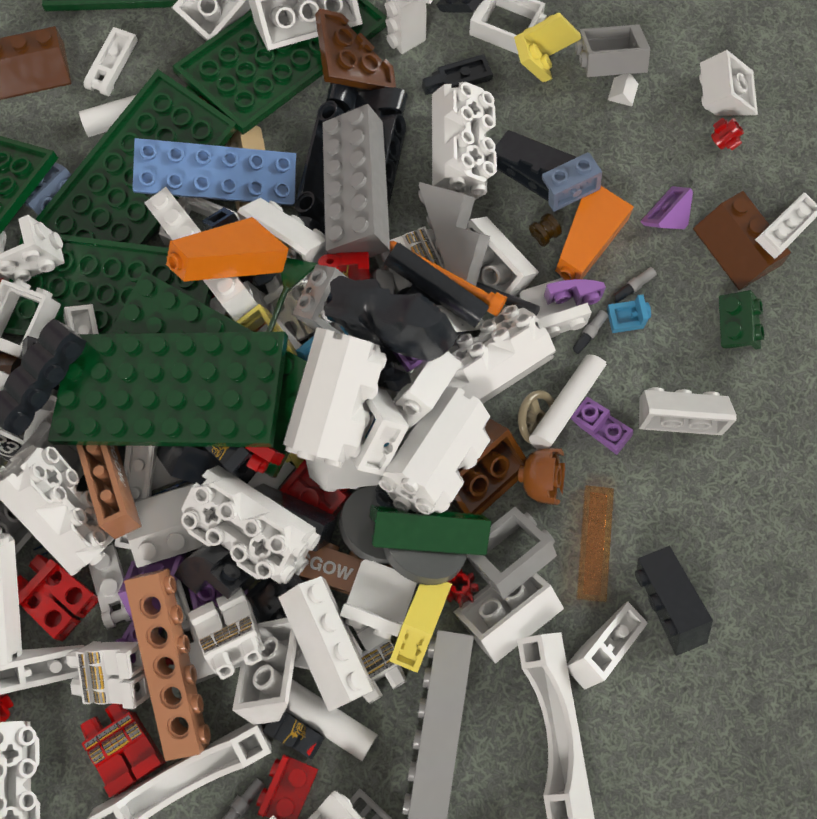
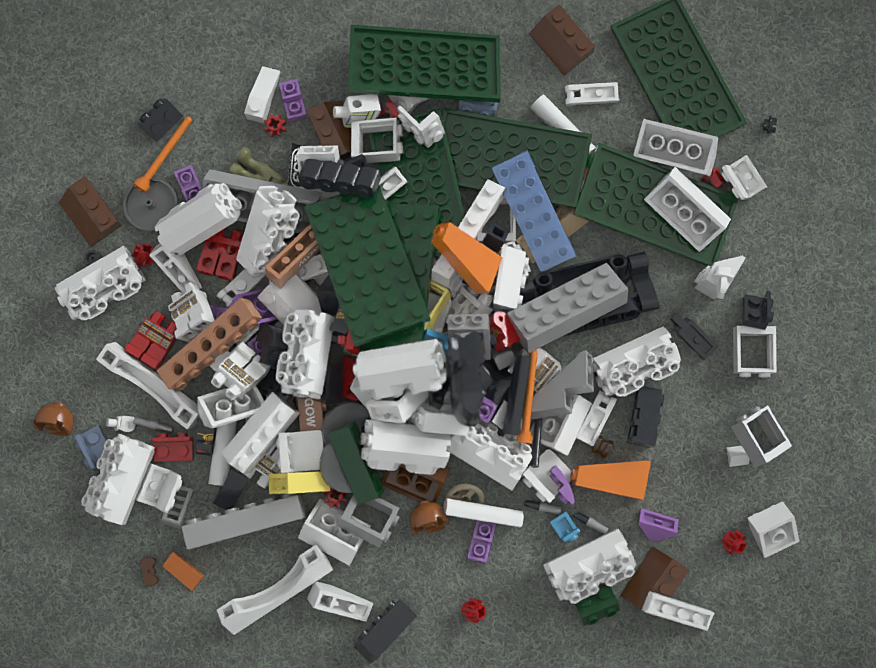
camera: 65 degrees right, 10 degrees up
(293, 273) = (481, 300): dark green piece -> none
(350, 57) = (667, 256): reddish brown plate -> none
(387, 730) = (231, 490): none -> black slope
(508, 221) = (596, 419): none -> white plate
(543, 40) = (734, 380): light yellow bracket -> none
(572, 181) = (637, 450): sand blue bracket -> none
(595, 544) = (401, 568): clear orange tile -> none
(685, 411) = (513, 591): white slope -> none
(690, 471) = (473, 610): none -> red gear
(691, 312) = (583, 568): none -> white brick

